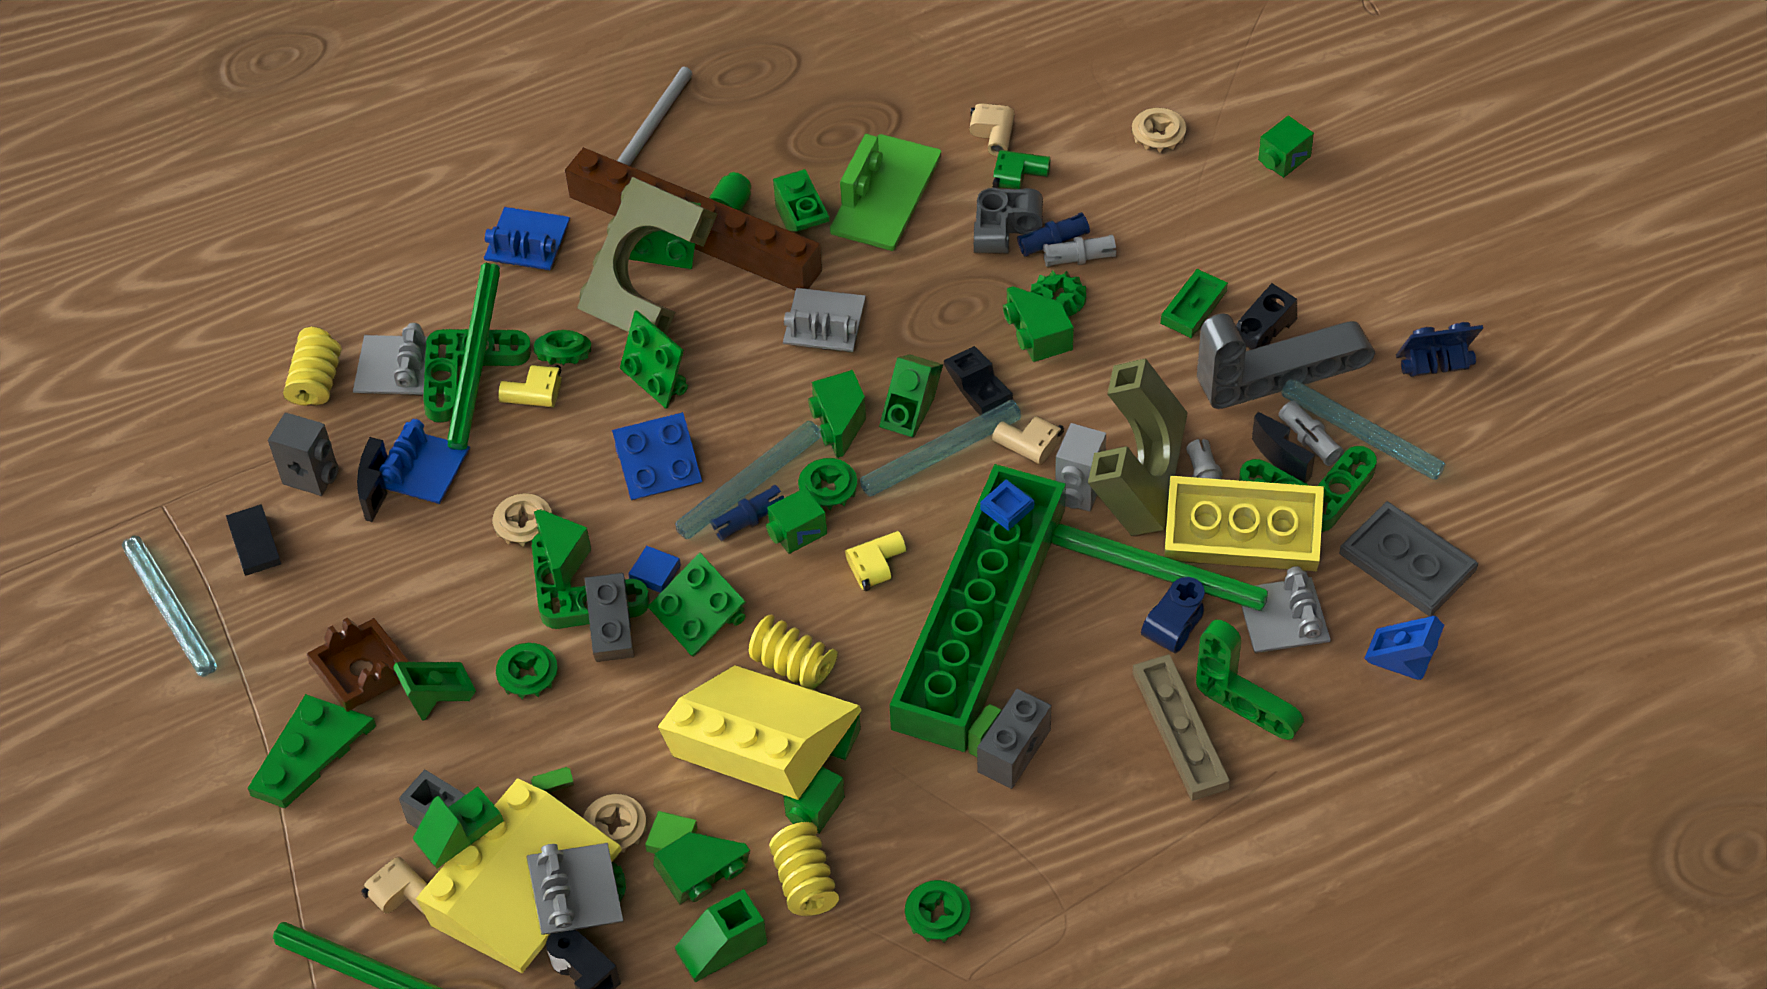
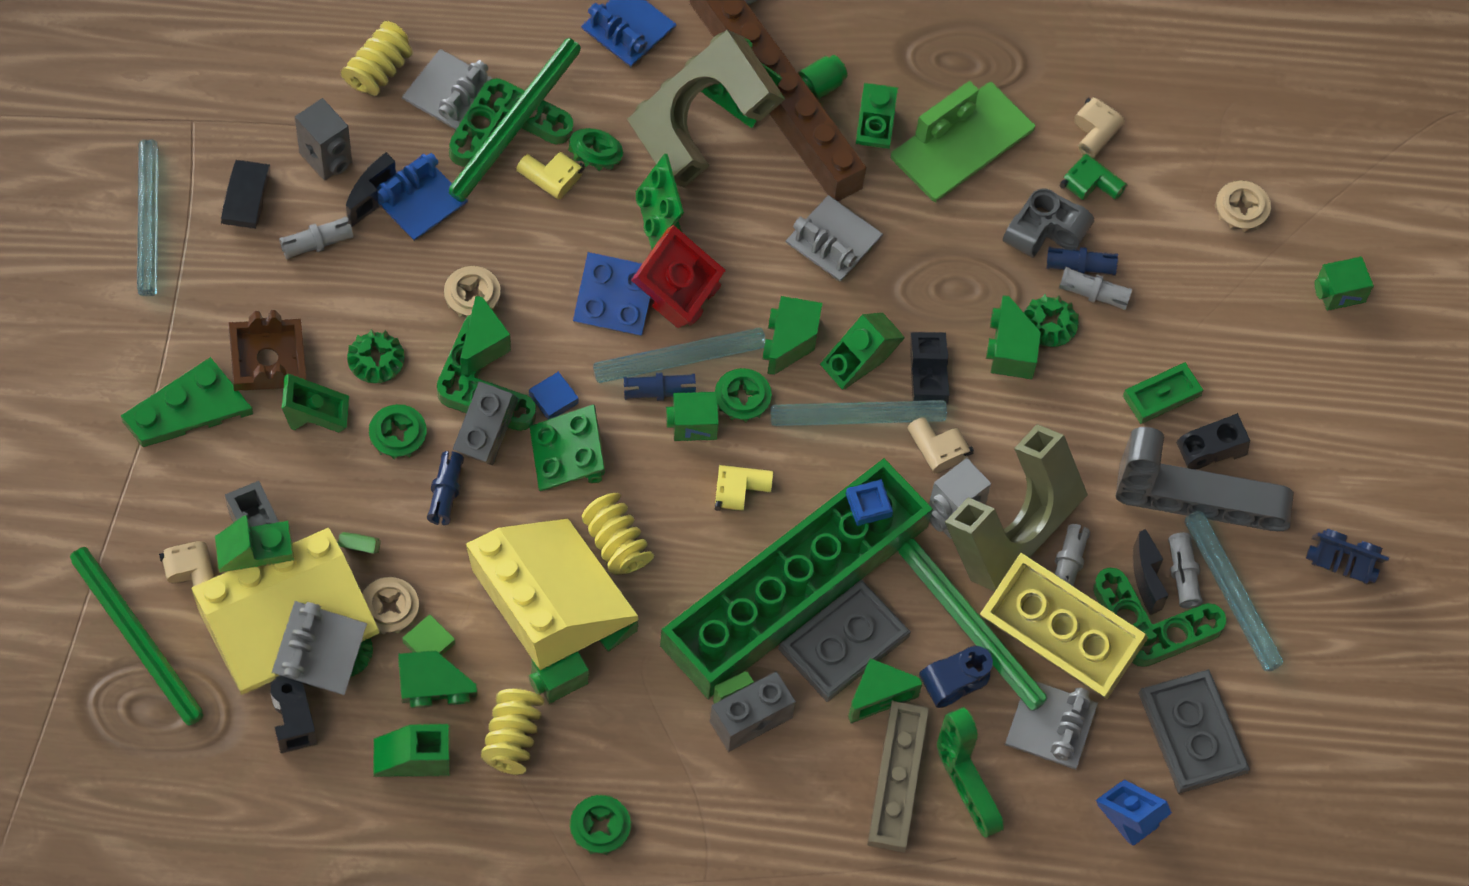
camera: 20 degrees right, 10 degrees up
(344, 544) = (316, 238): none -> light grey pin
(461, 630) = (364, 367): none -> green gear
(603, 695) = (445, 488): none -> dark blue pin
(709, 412) = (678, 277): none -> red plate
(1054, 640) = (842, 639): none -> dark grey tile
(1114, 660) = (880, 687): none -> green slope

